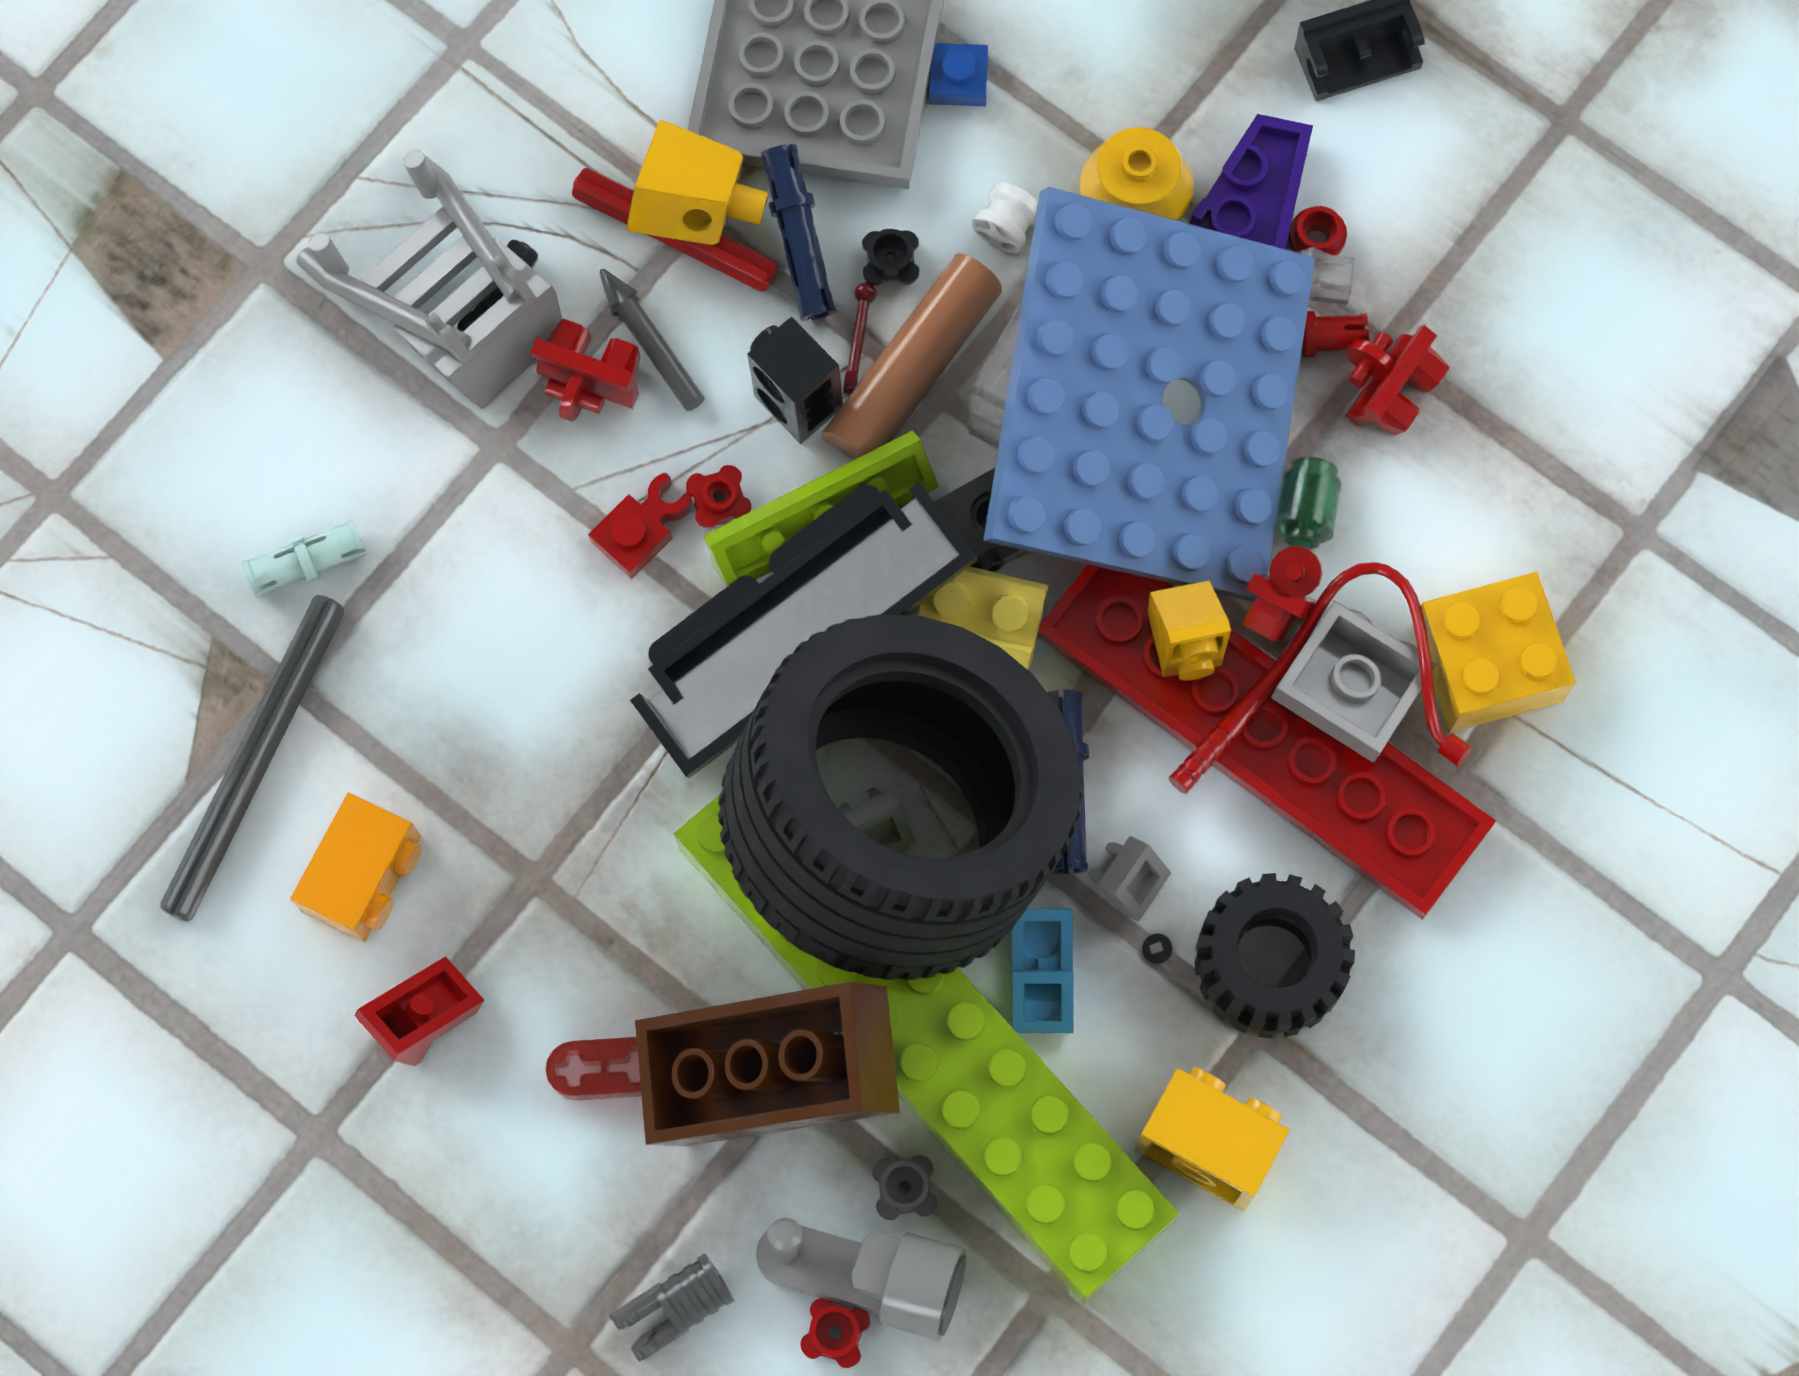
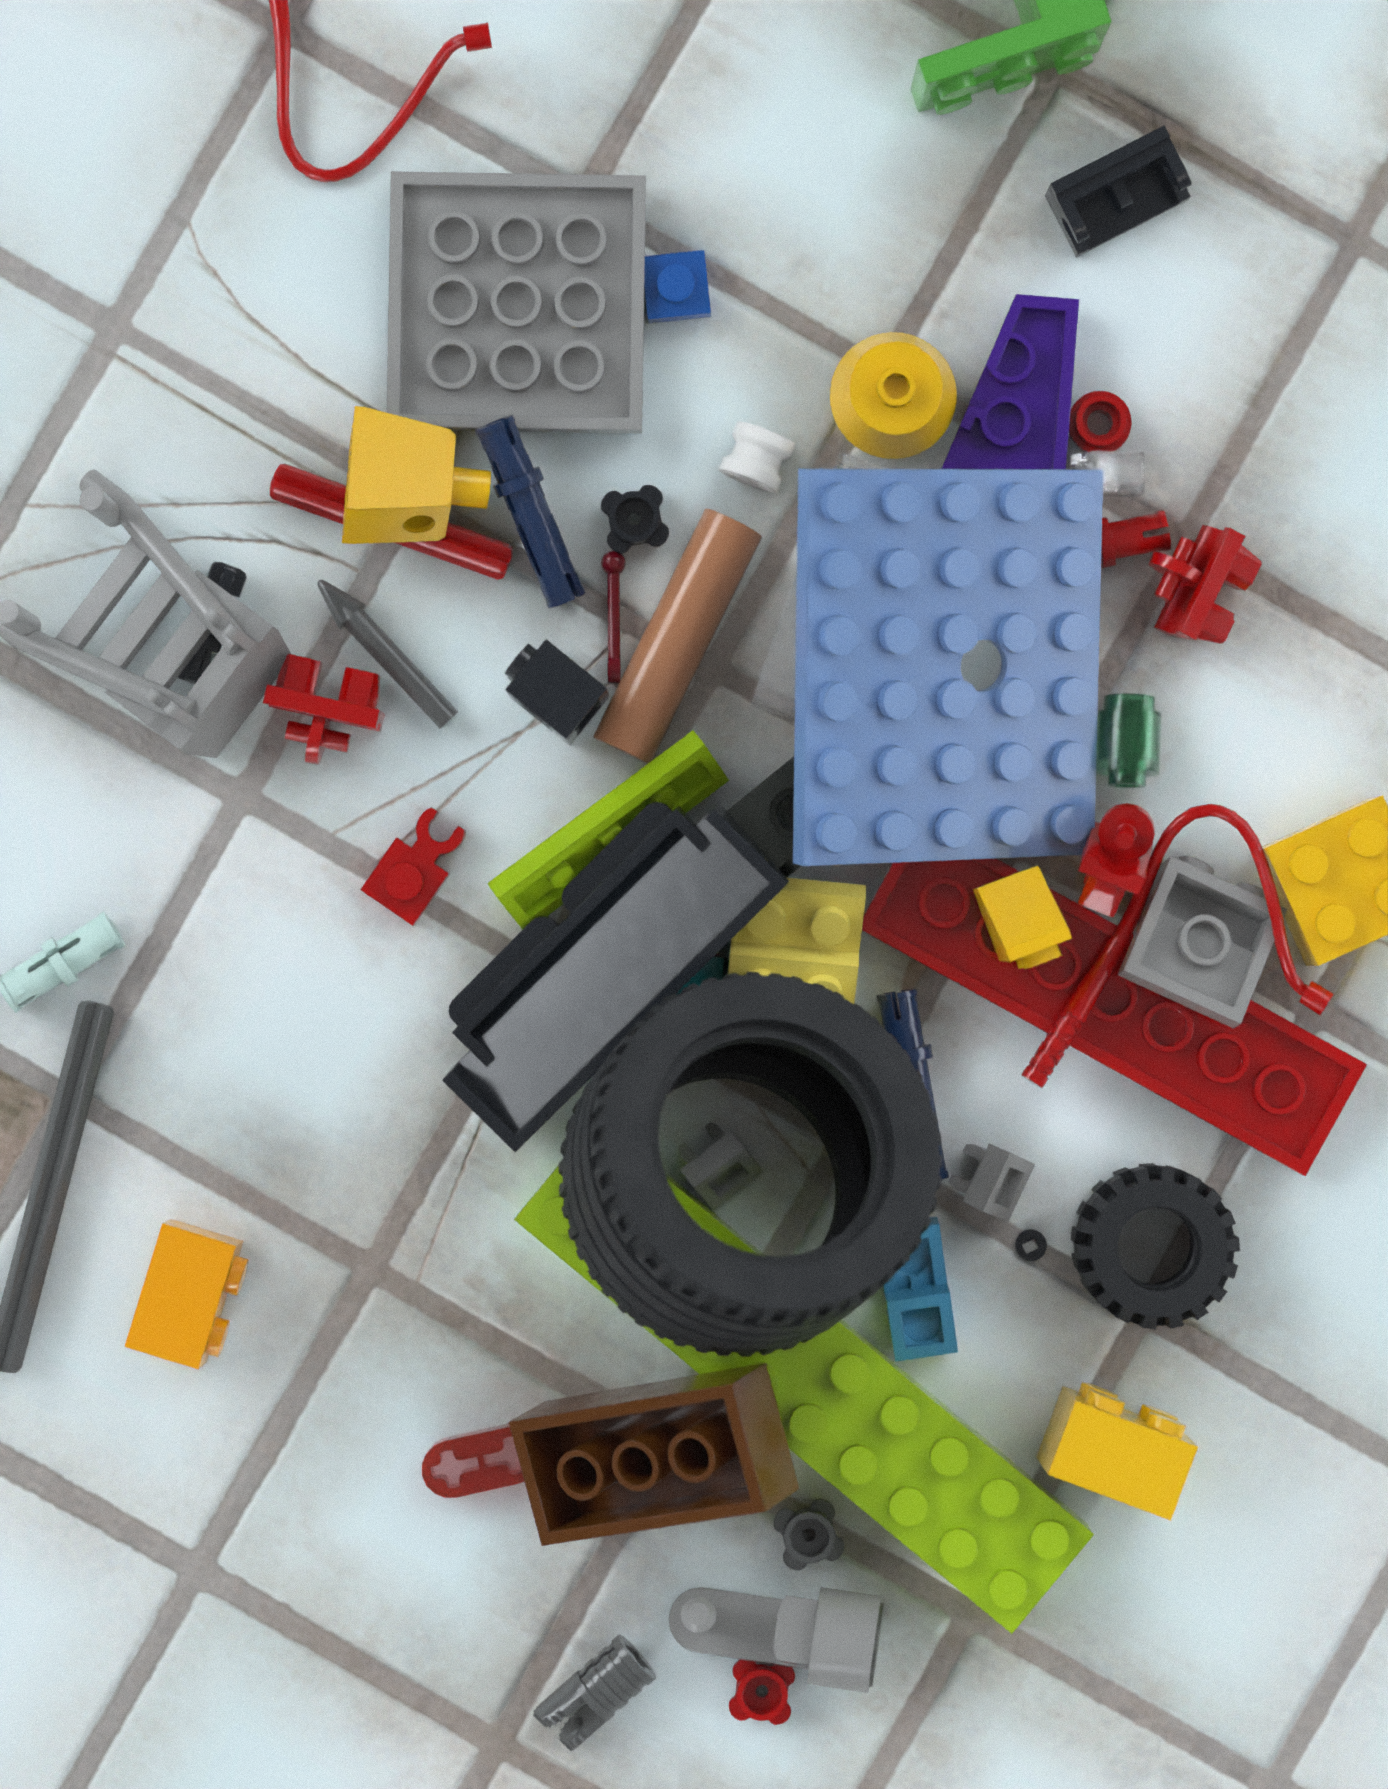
camera: 15 degrees left, 15 degrees up
(420, 1011) = (281, 1438): red slope -> none
(711, 512) = (498, 808): red plate -> none

